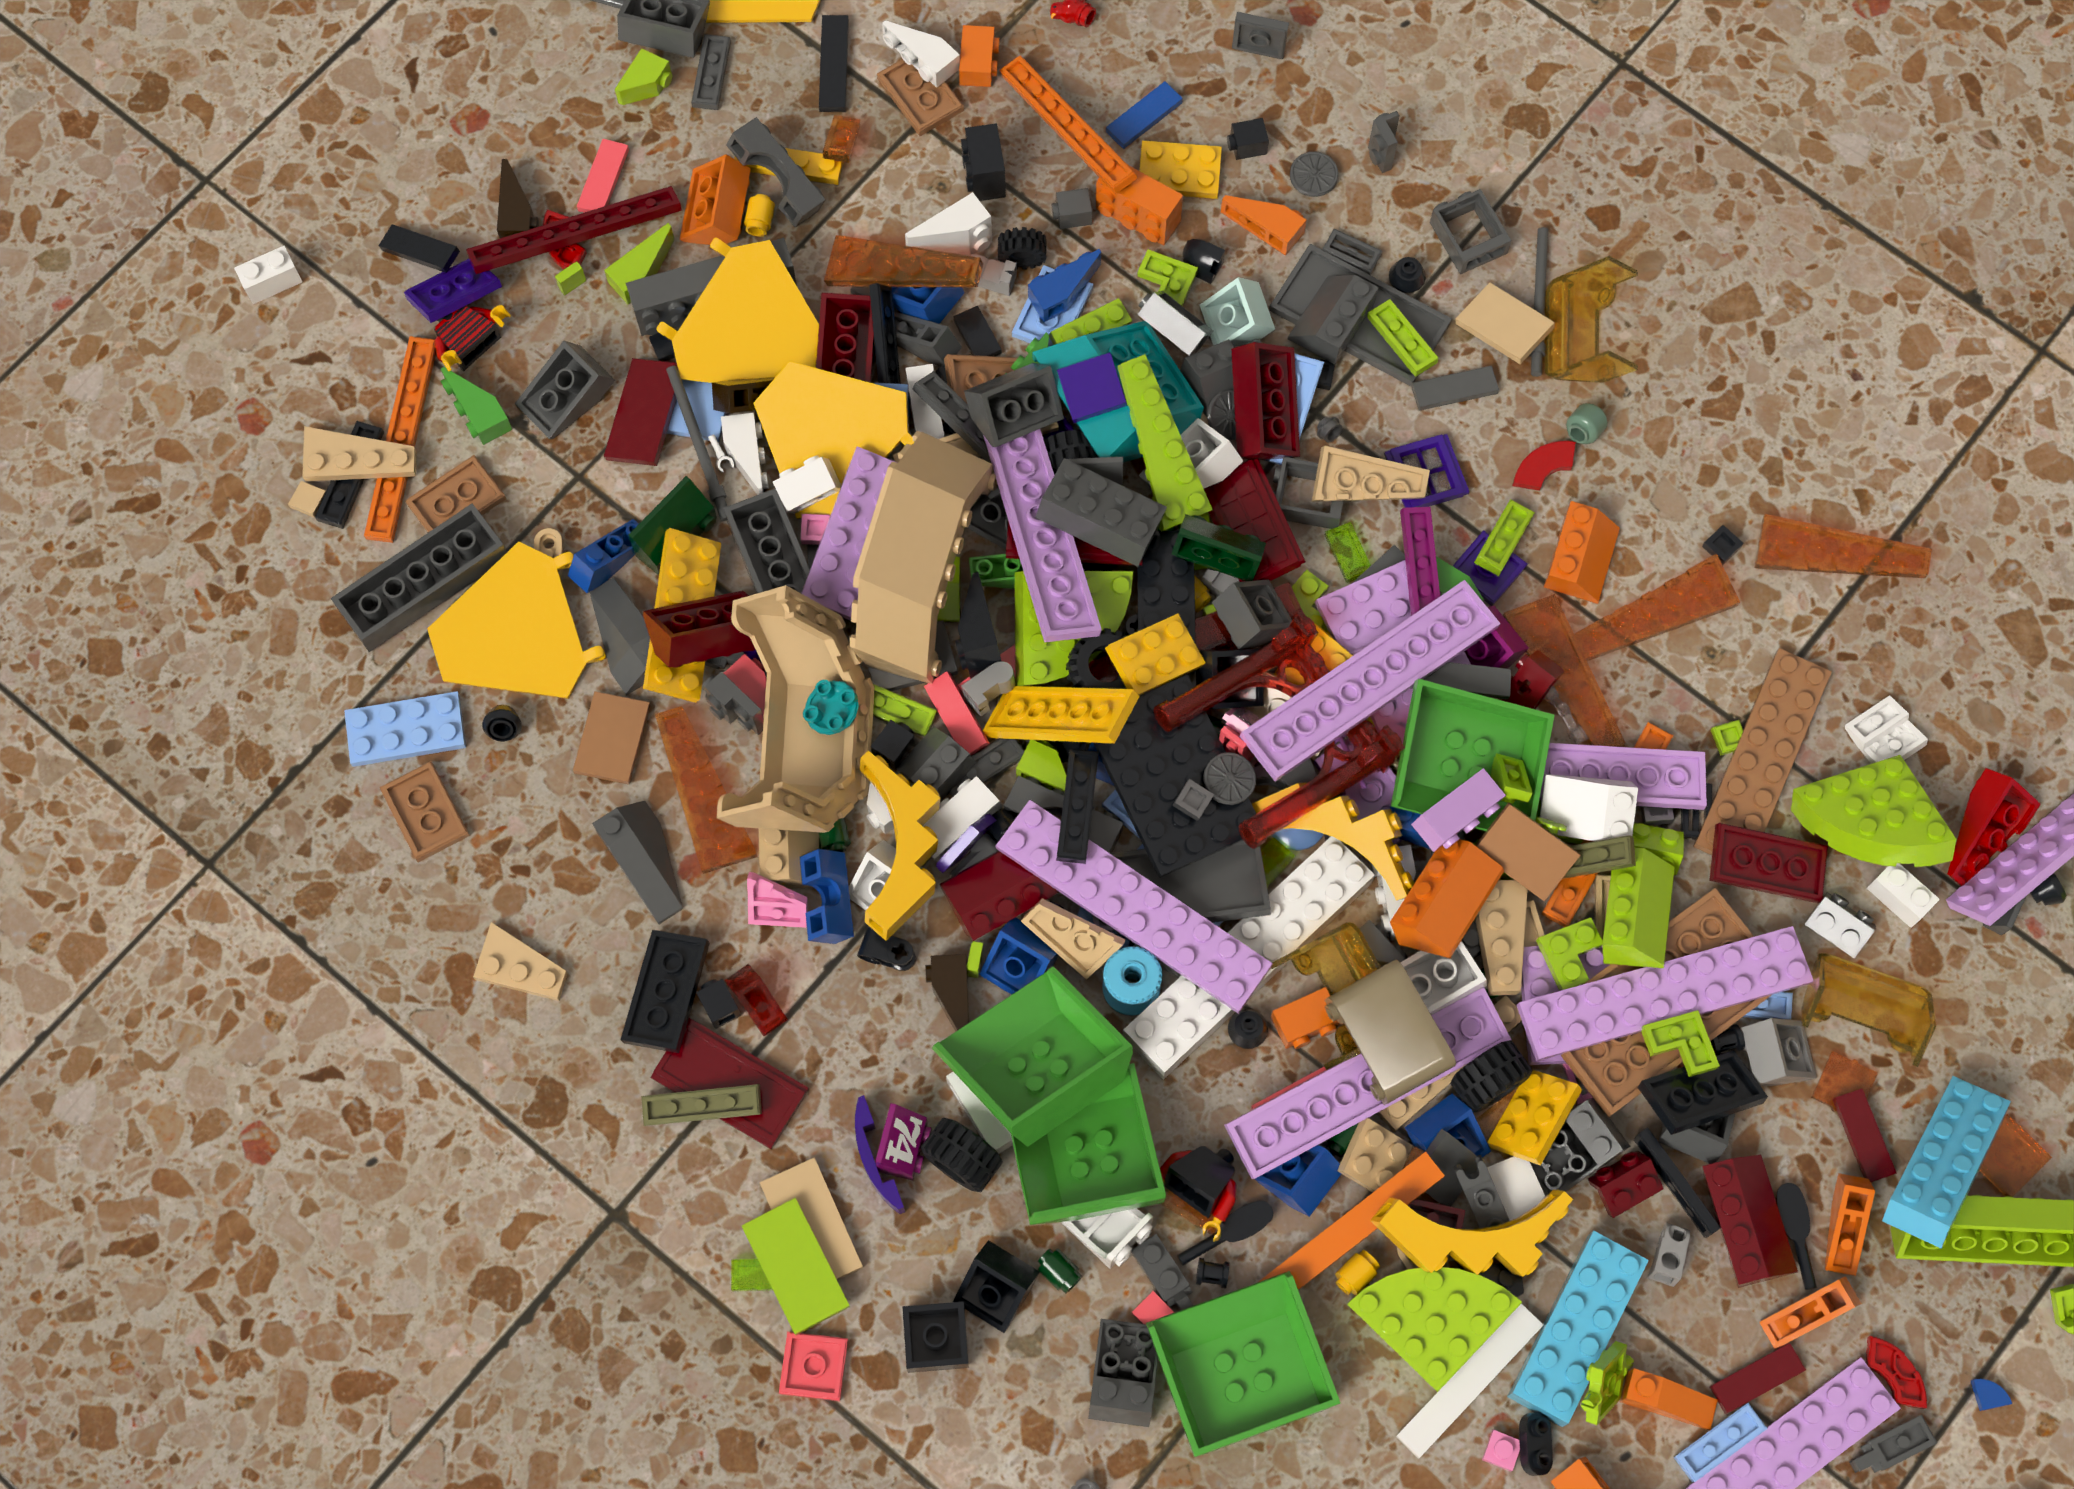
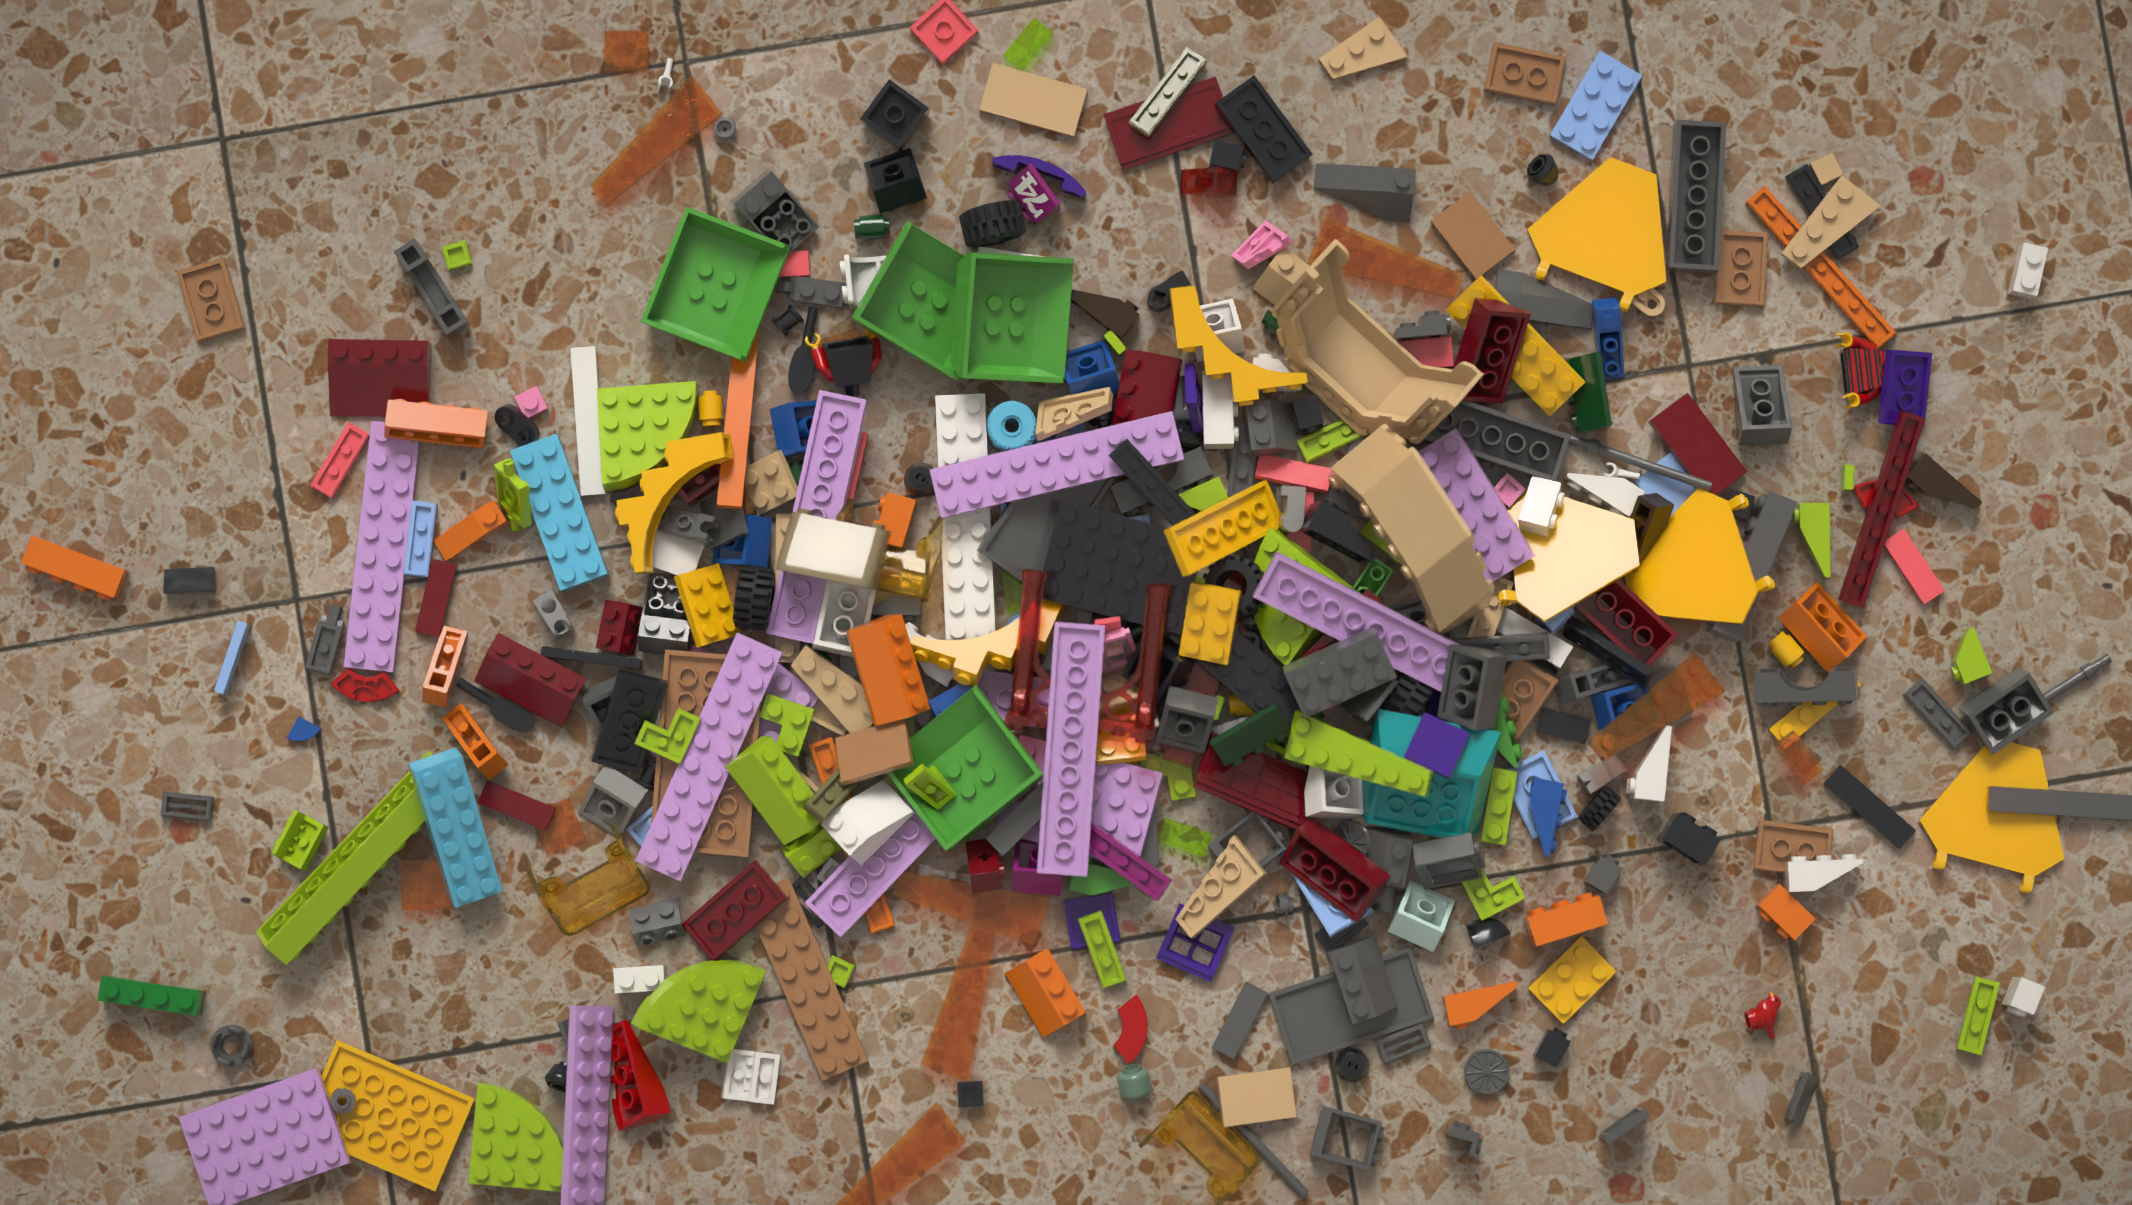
camera: 130 degrees right, 15 degrees up
(419, 248) = (1961, 391): black tile -> none
(480, 407) = (1792, 336): bright green slope -> none
(795, 1266) = (1013, 67): lime tile -> none
(828, 875) = (1220, 276): blue arch -> none
(831, 707) = (1362, 388): teal dish -> none
(1068, 124) = (1667, 920): orange tile -> none
(1144, 115) = (1637, 993): blue tile -> none
(1193, 799) = (1090, 560): flat silver plate -> none
(1229, 778) = (1085, 599): dark grey wheel -> none
(1402, 337) = (1305, 1013): lime plate -> none
(1459, 811) = (934, 725): lavender brick -> none
(1550, 825) = (878, 784): lime plant -> none

